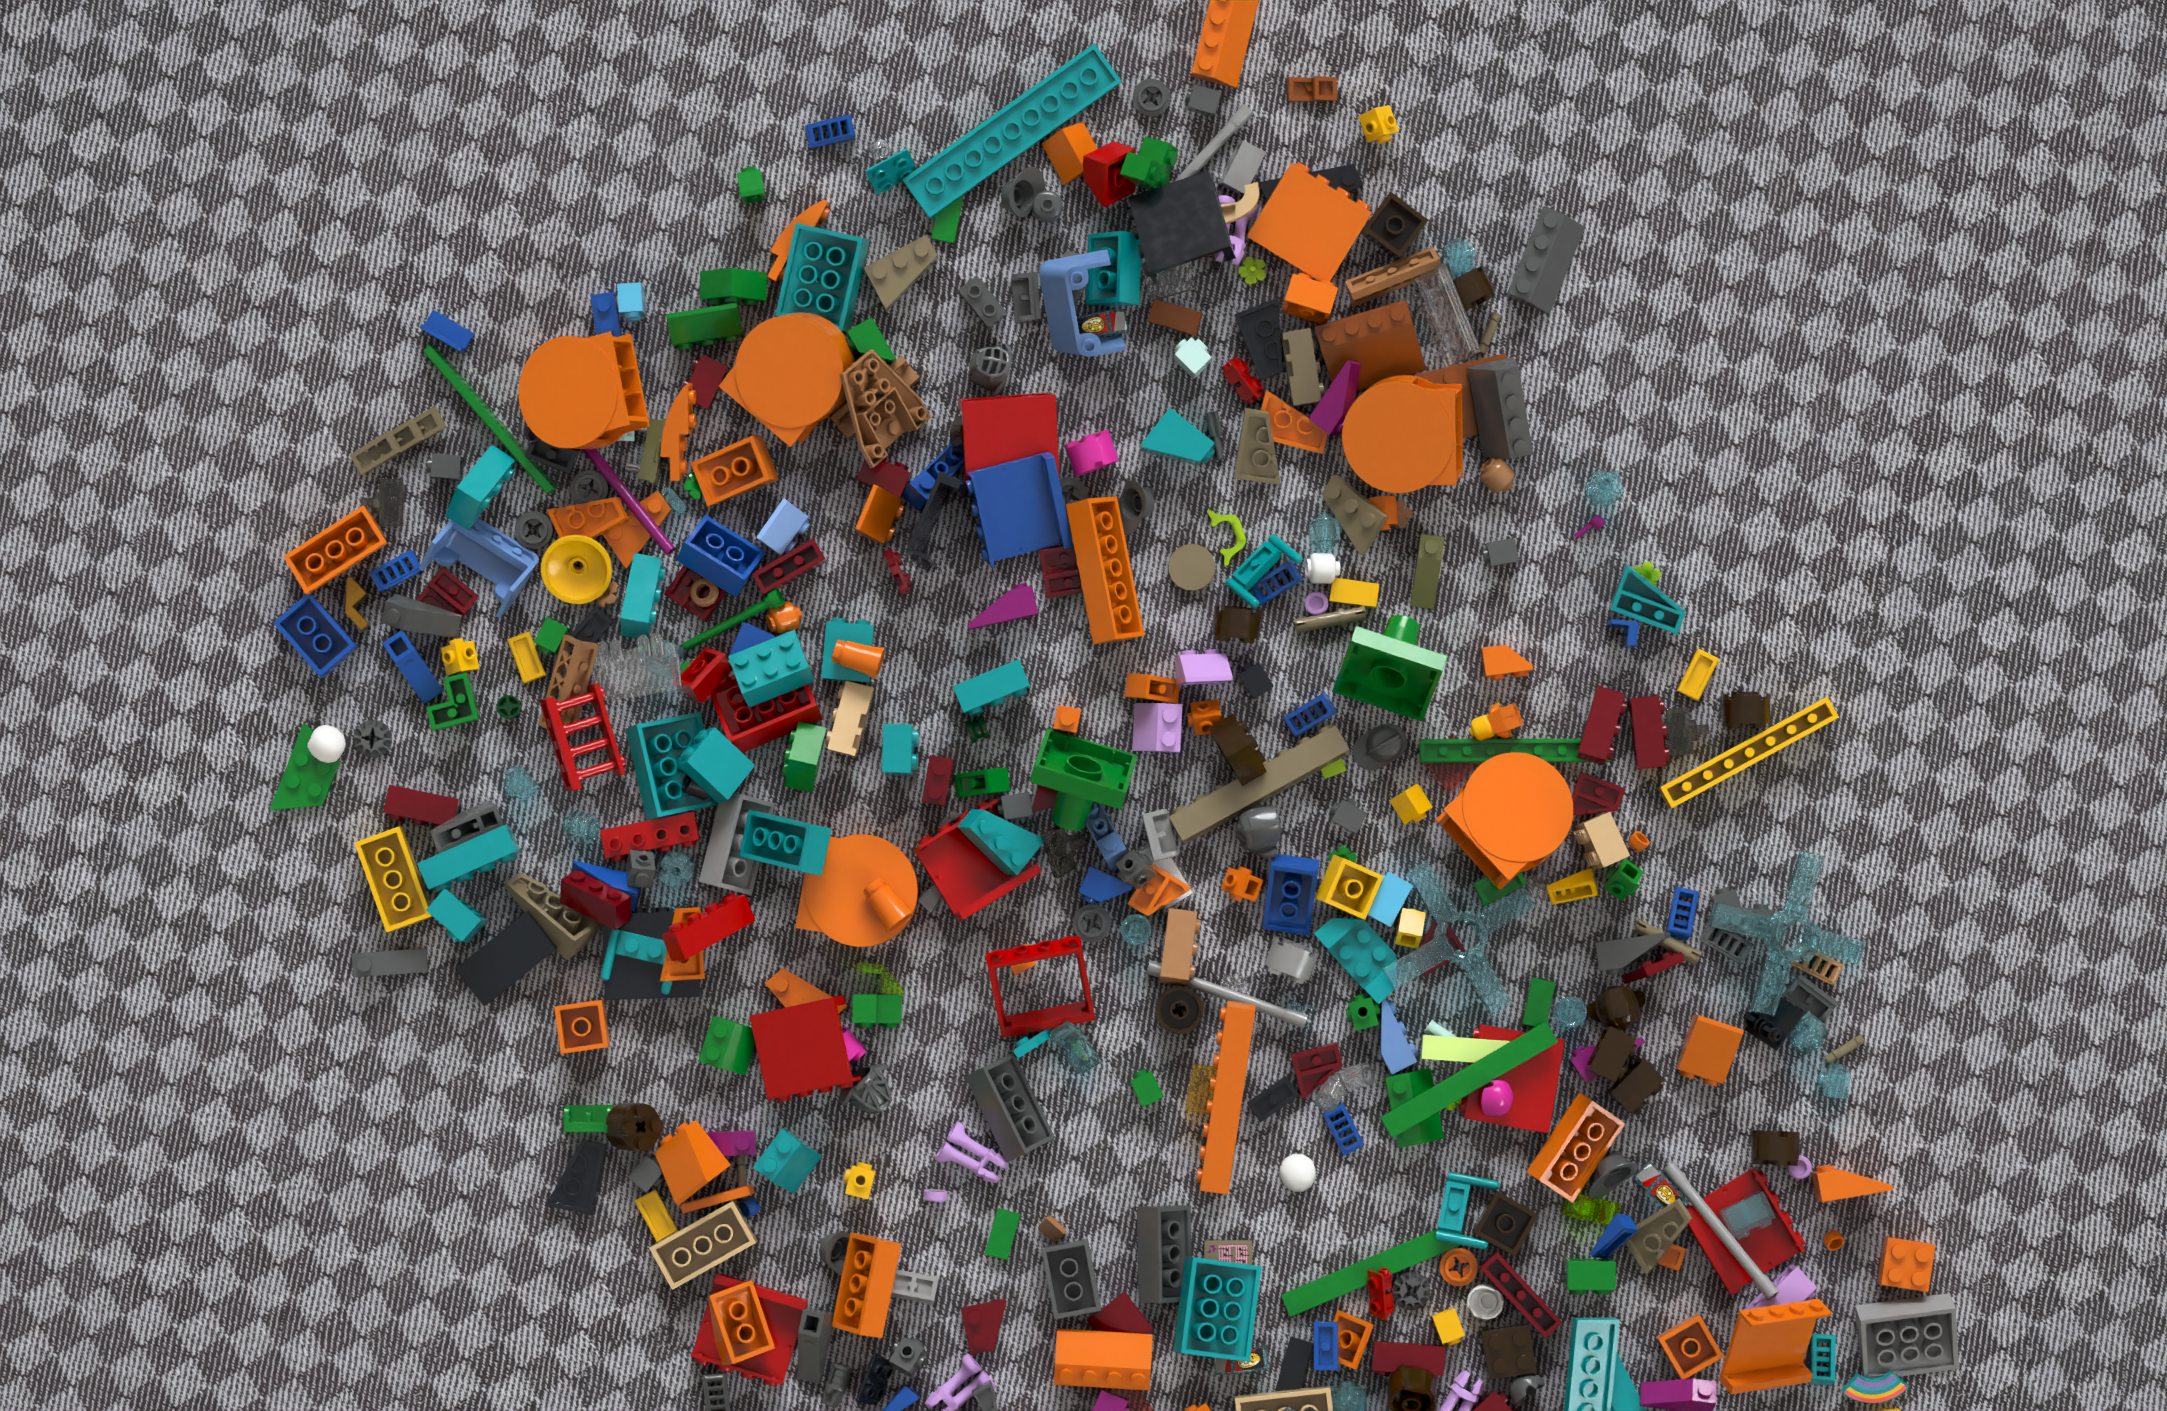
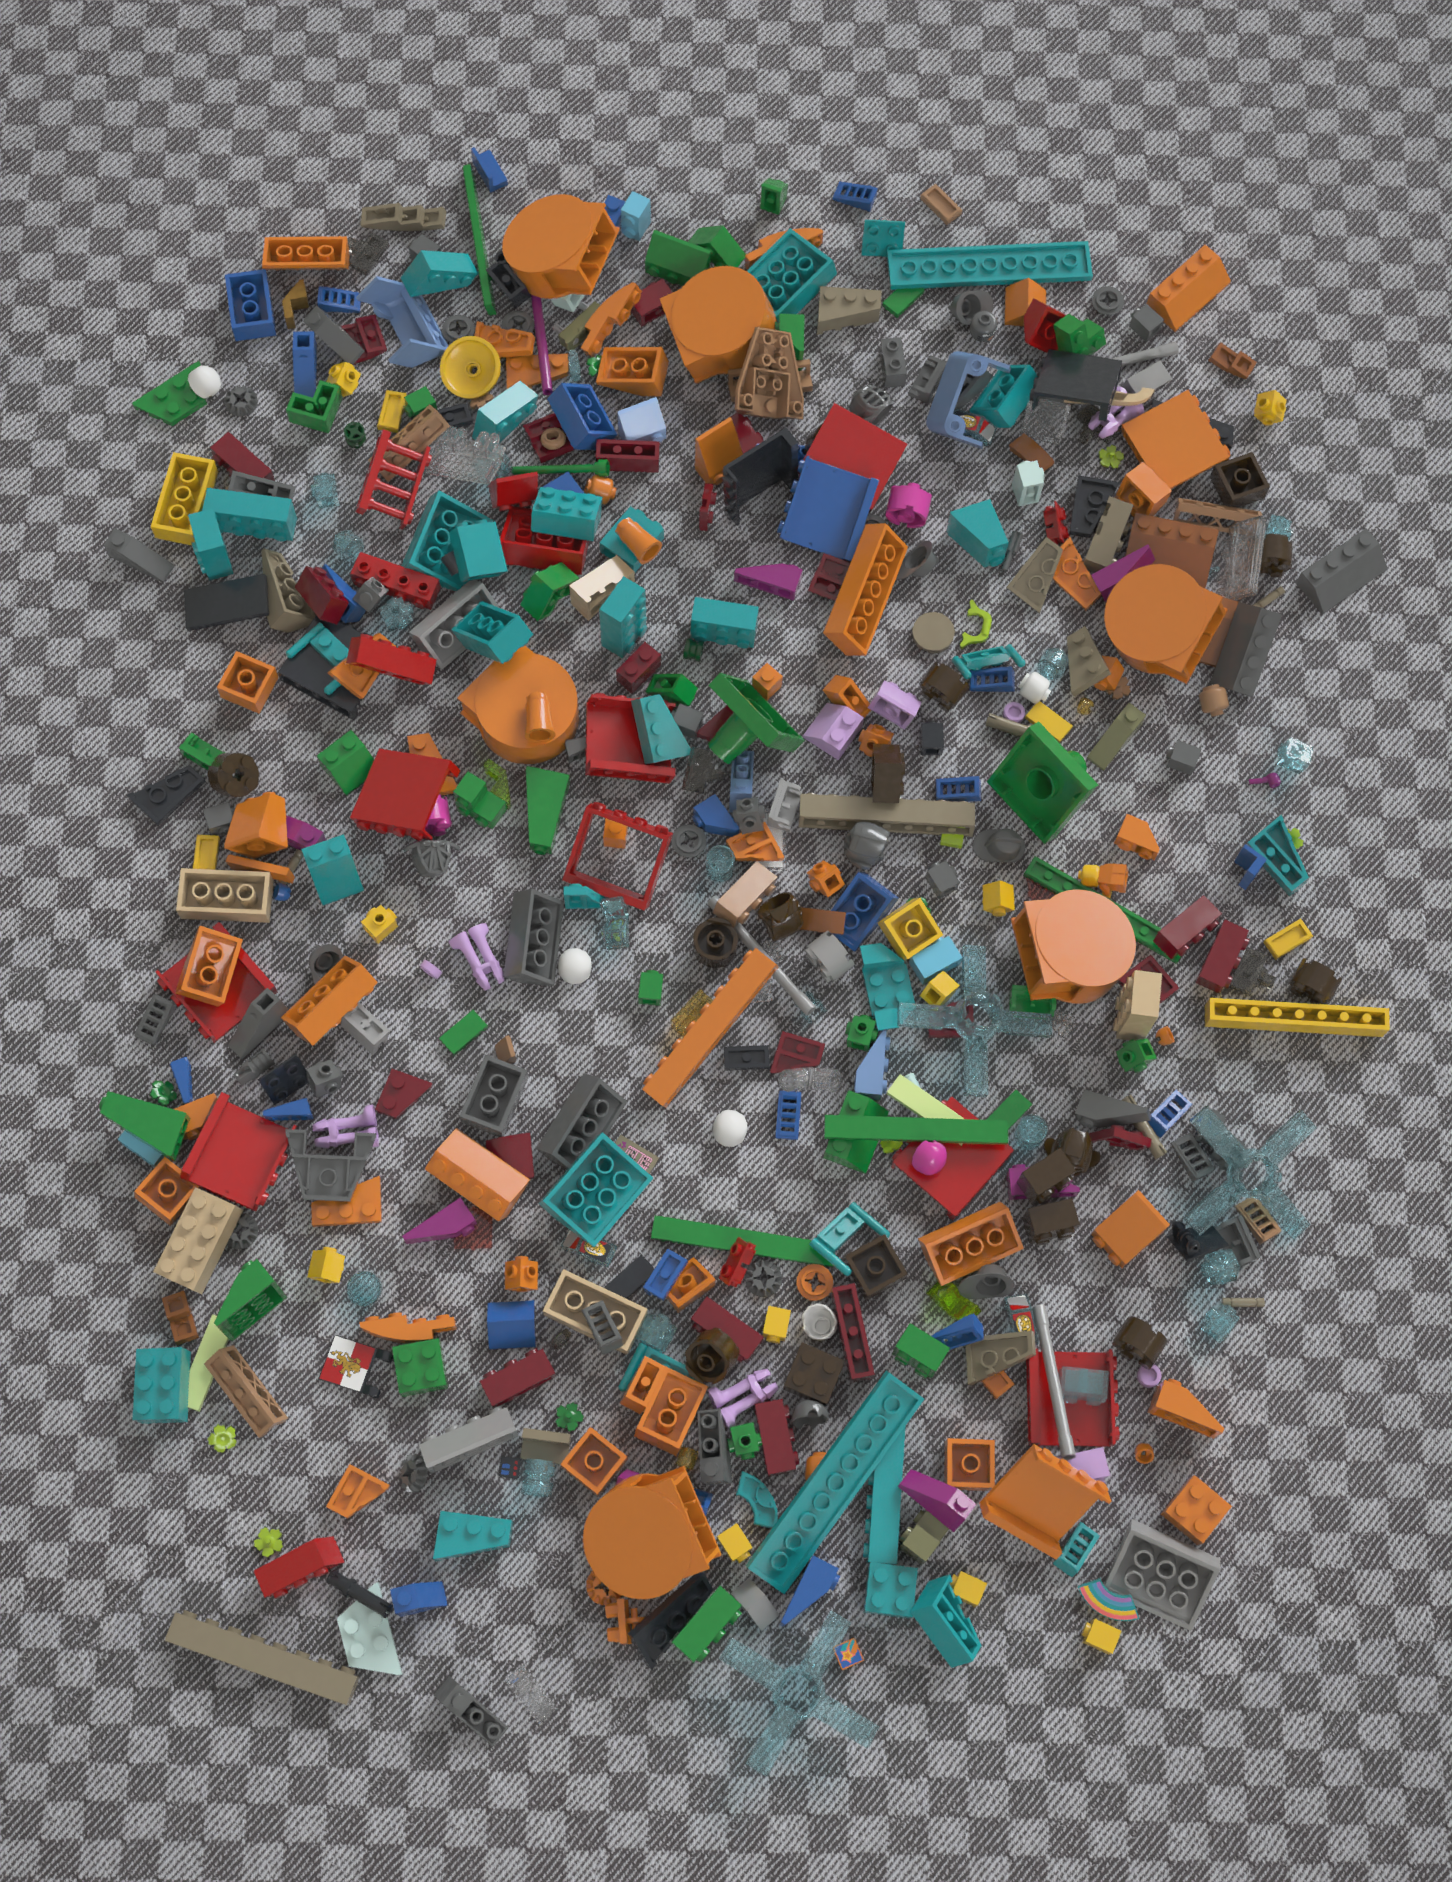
camera: 30 degrees right, 15 degrees down
(921, 87) = (941, 204): none -> medium nougat tile
(936, 970) = (545, 804): none -> green slope
(1062, 1108) = (574, 966): none -> white hair
(1222, 946) = (781, 915): none -> dark brown piece
(1264, 927) = (823, 920): none -> dark orange slope
(1379, 555) = (1084, 706): none -> clear yellow hinge
(1580, 886) = (1089, 1045): yellow slope -> none

